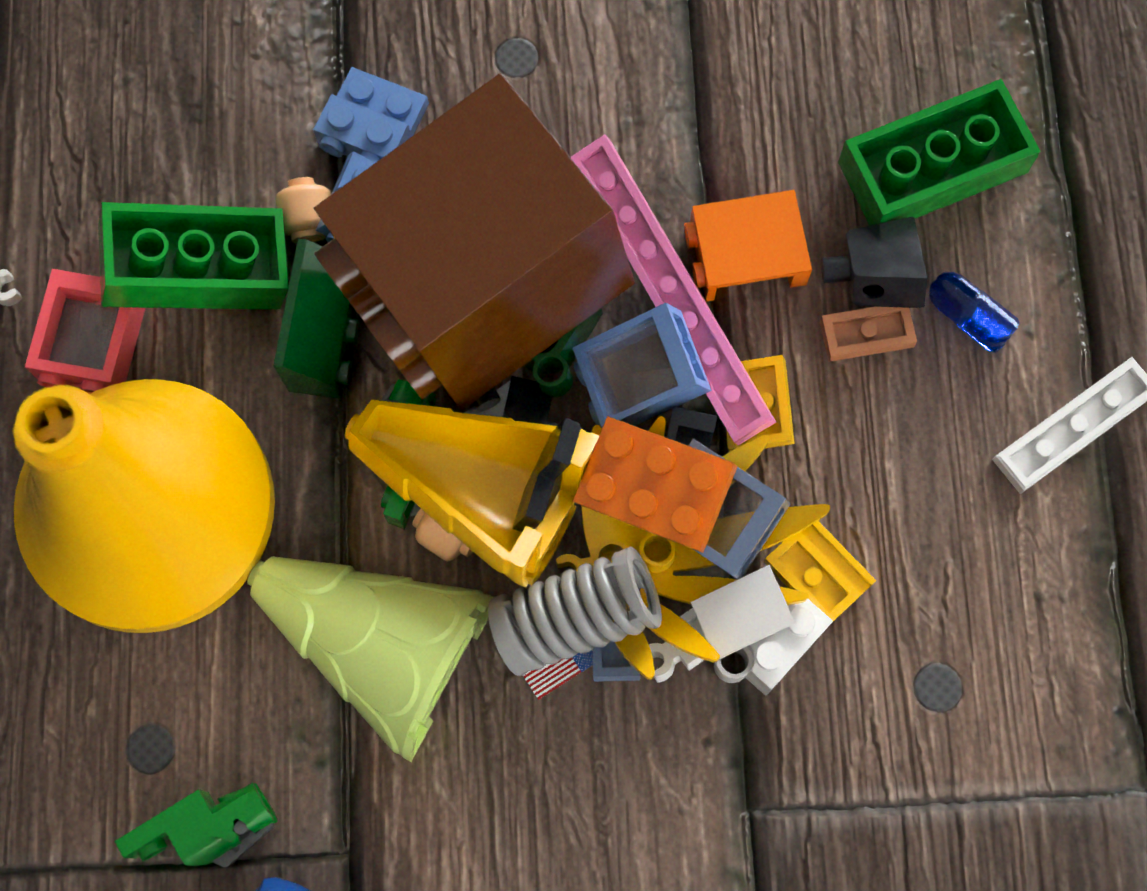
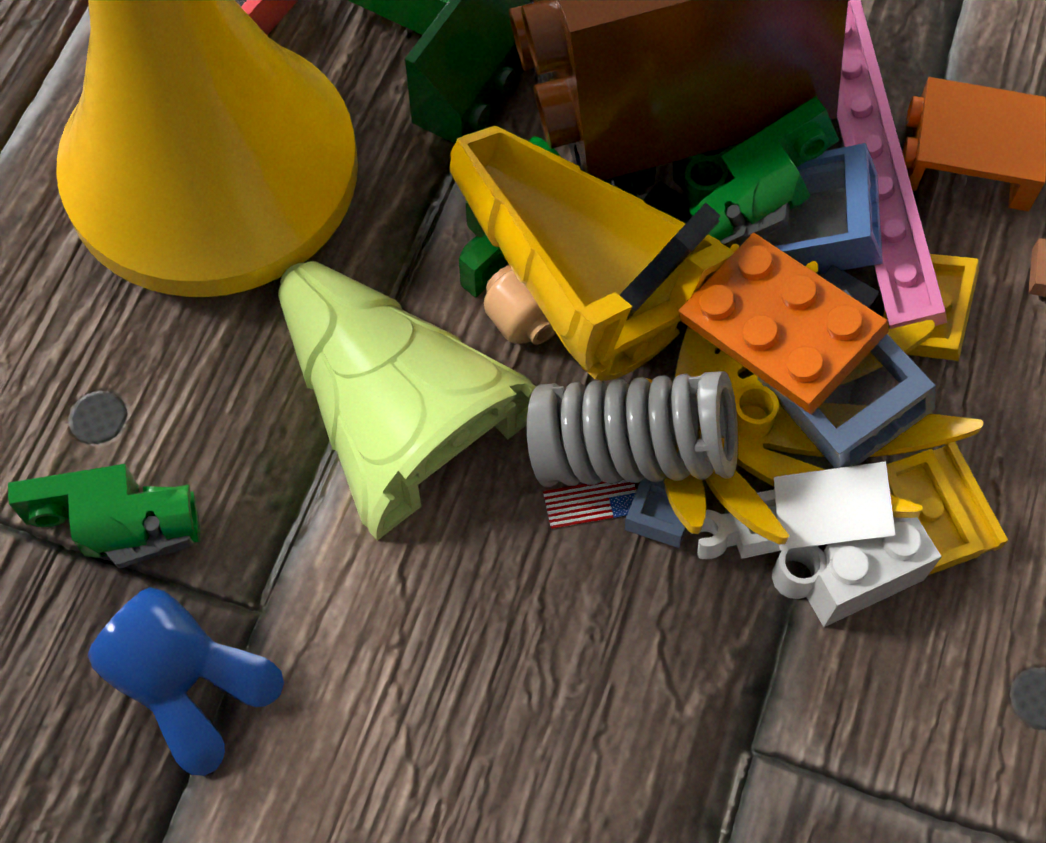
camera: 20 degrees right, 10 degrees down
(599, 363) = (767, 176): none -> green plate

